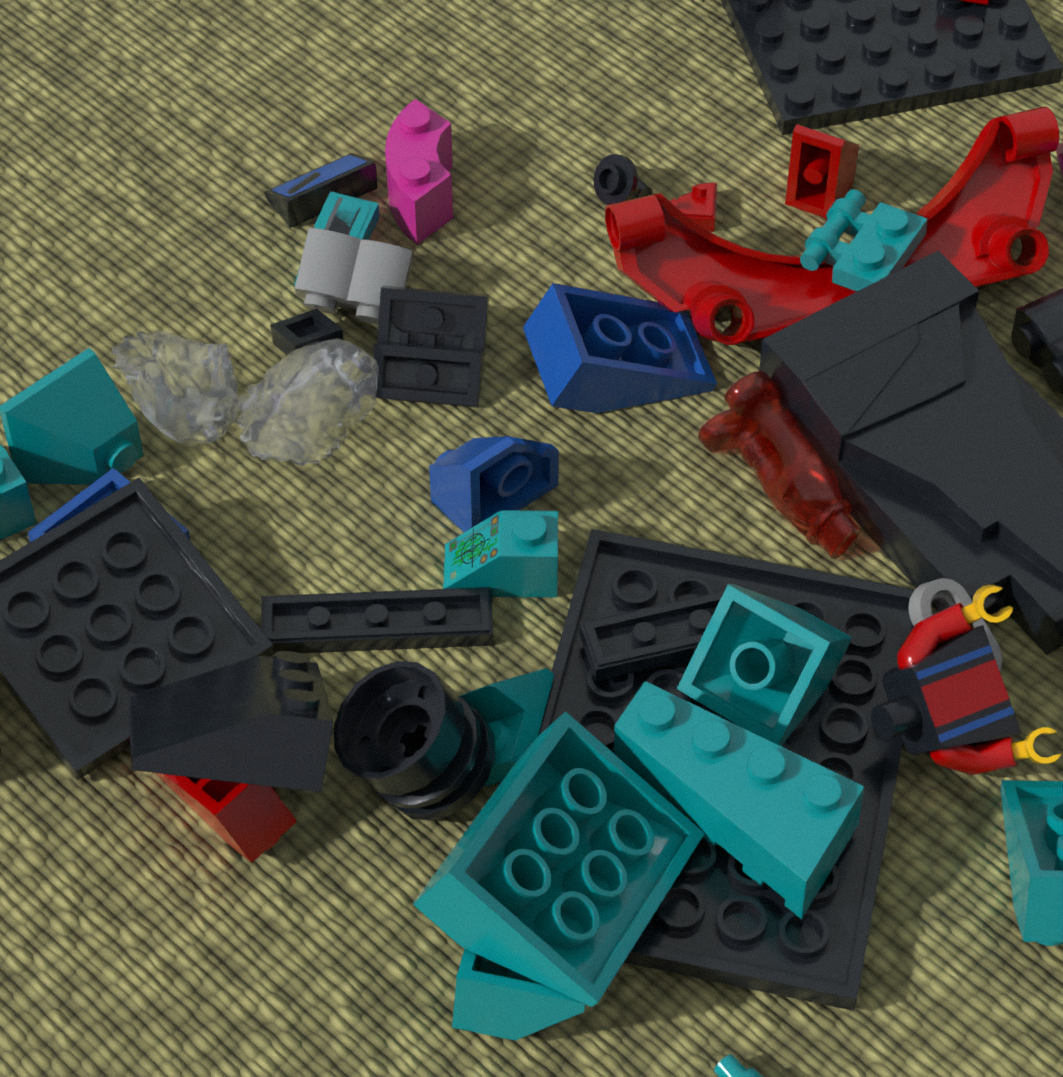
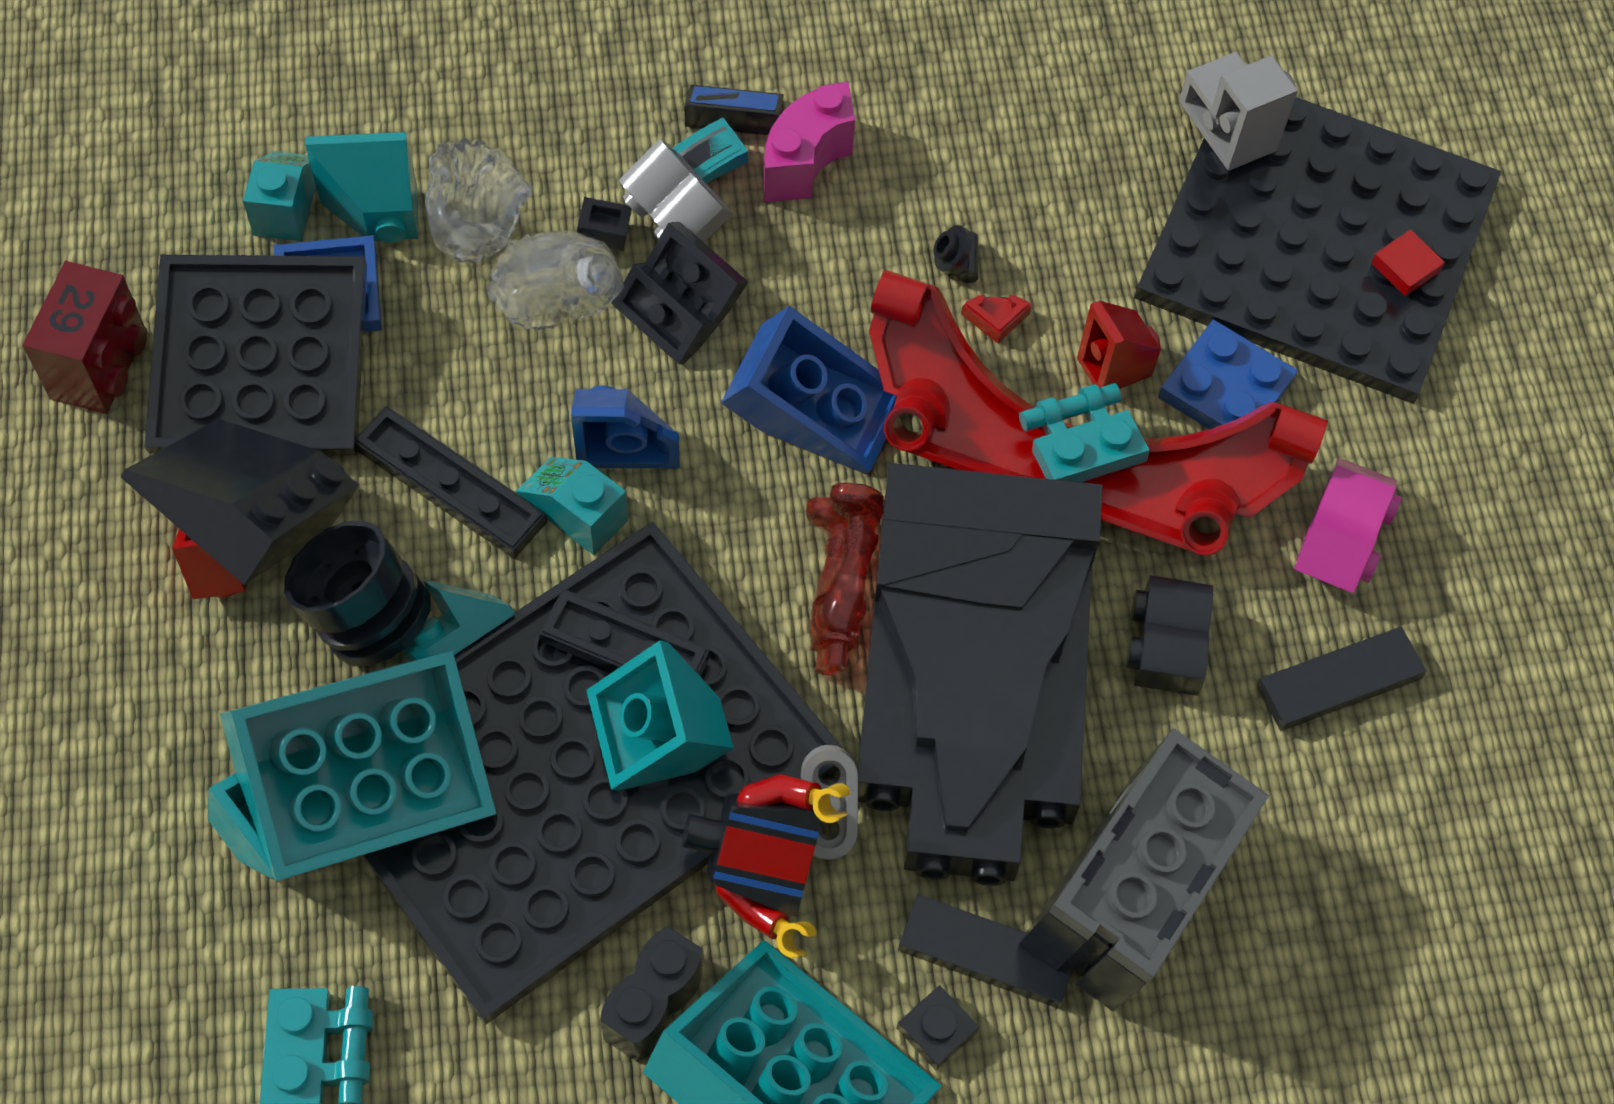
camera: 35 degrees right, 10 degrees up
(743, 791) = (541, 822): teal wedge -> none
(914, 146) = (1225, 378): none -> blue plate
(969, 877) = (642, 1003): none -> black brick

